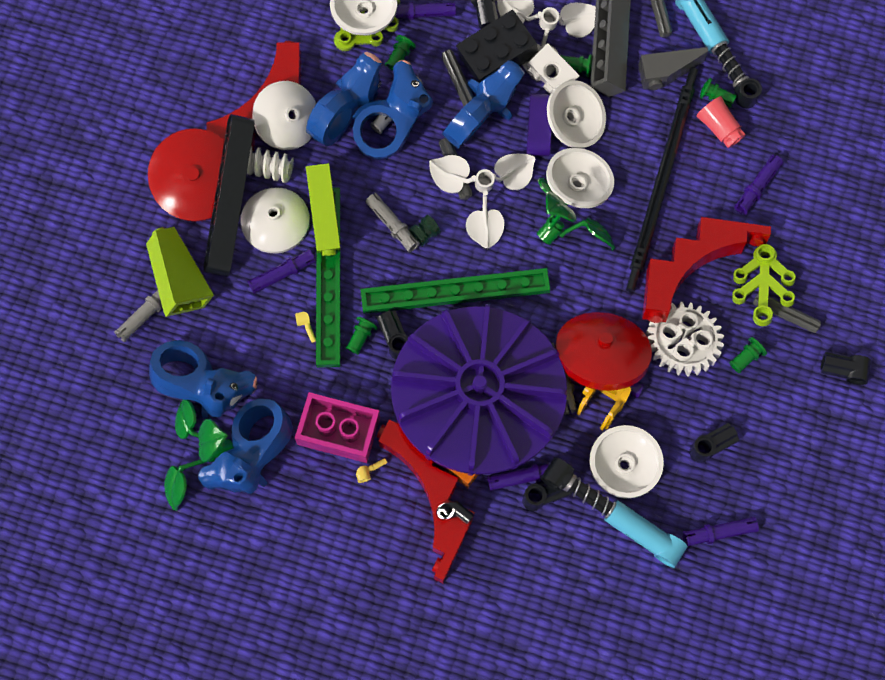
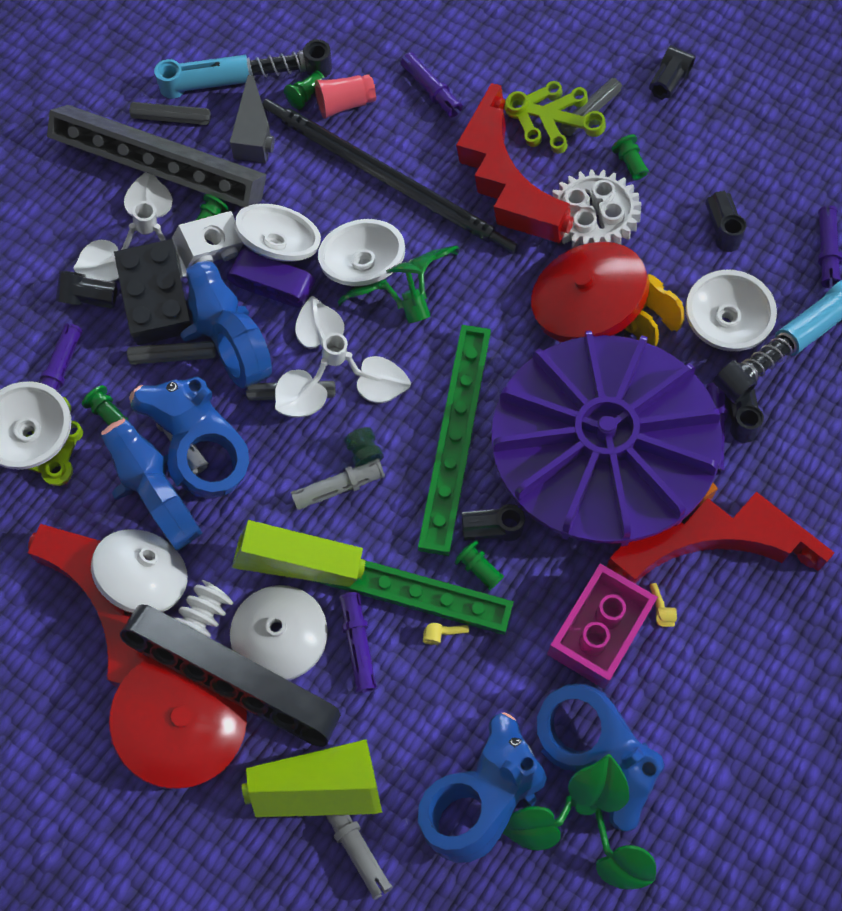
camera: 70 degrees left, 5 degrees down
(452, 510) = (750, 512): black arm -> none

